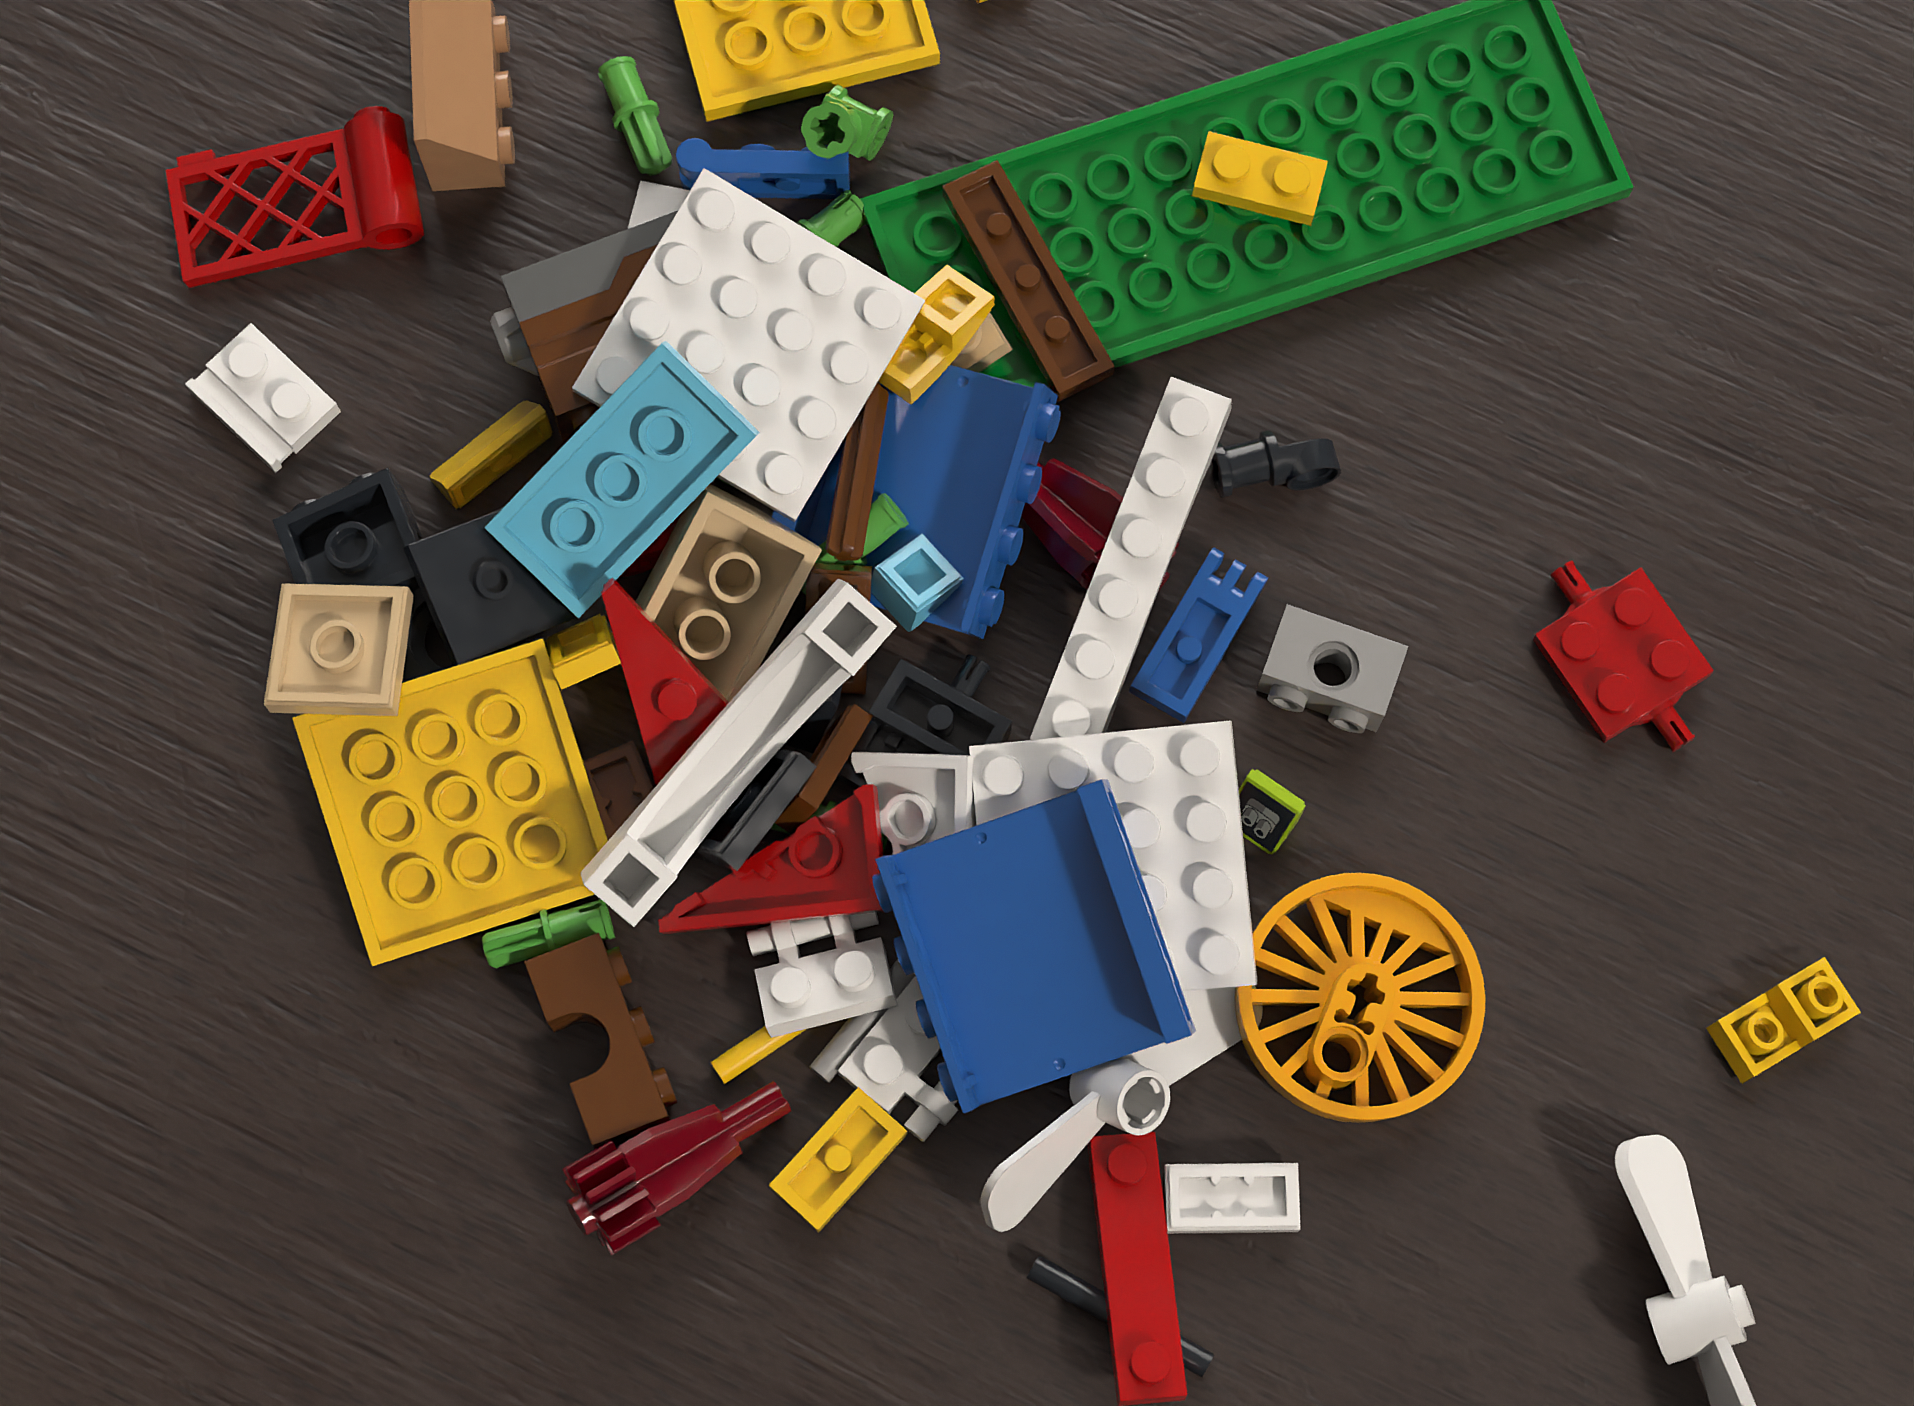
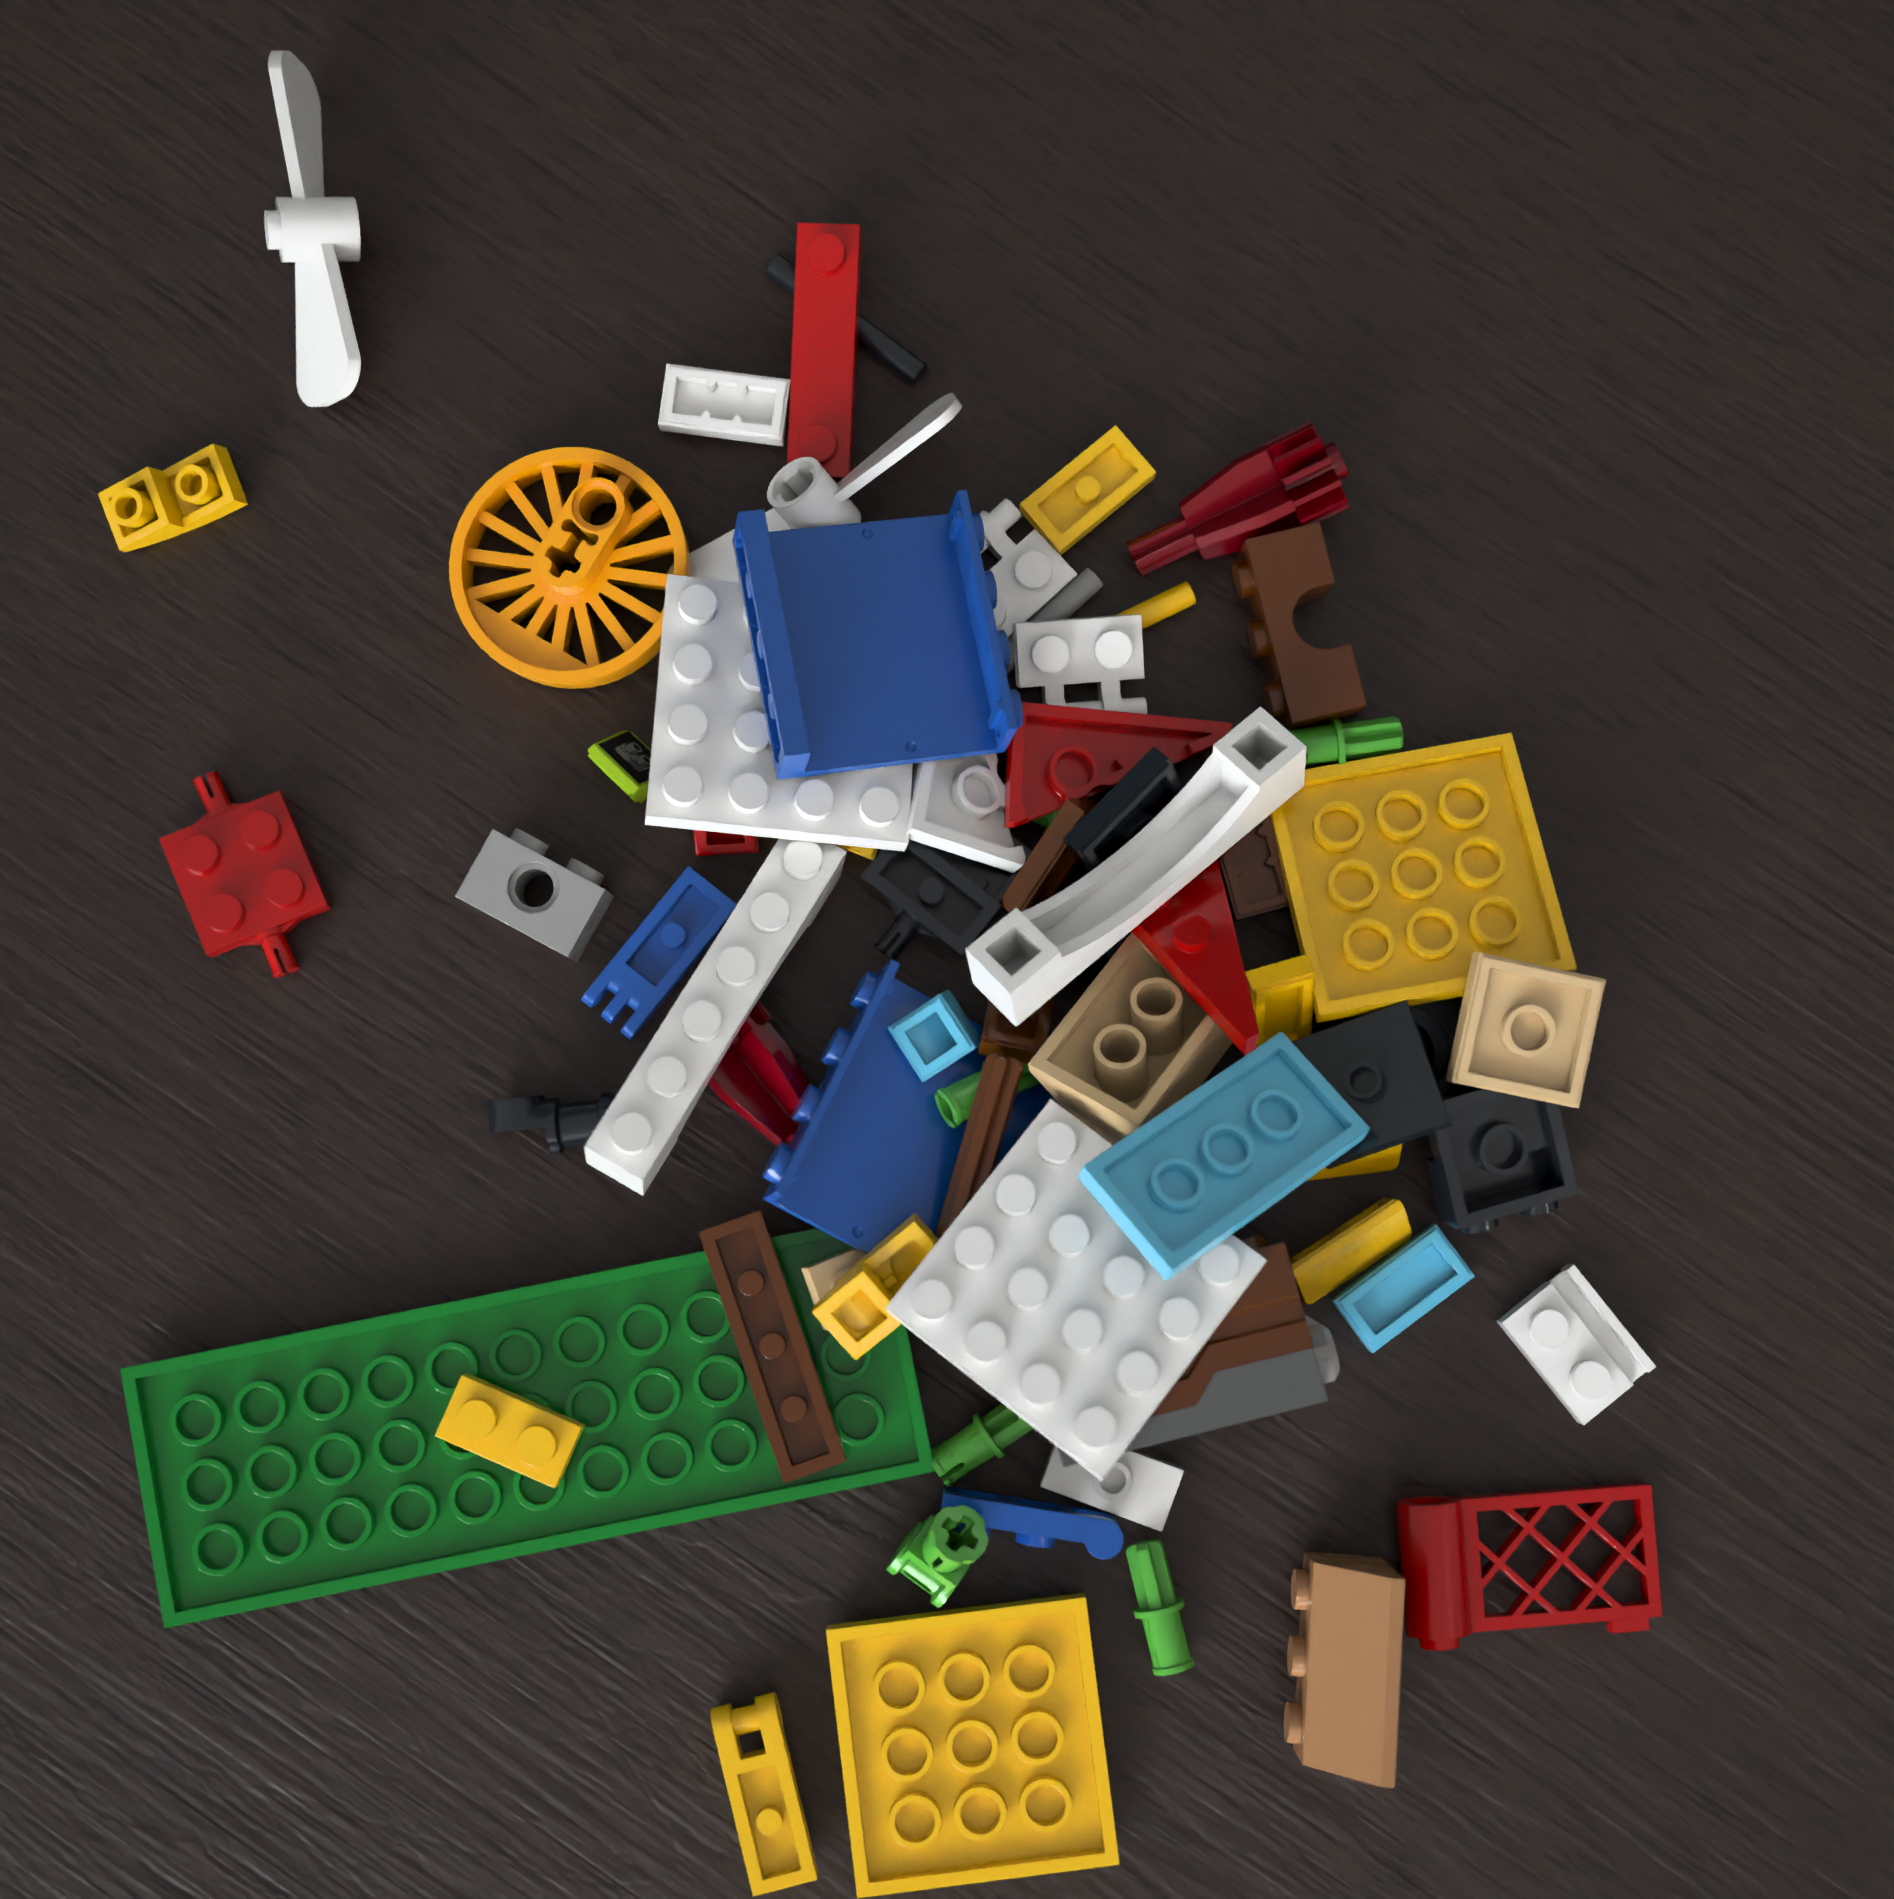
camera: 170 degrees left, 10 degrees up
(434, 426) = (1402, 1287): none -> medium azure tile

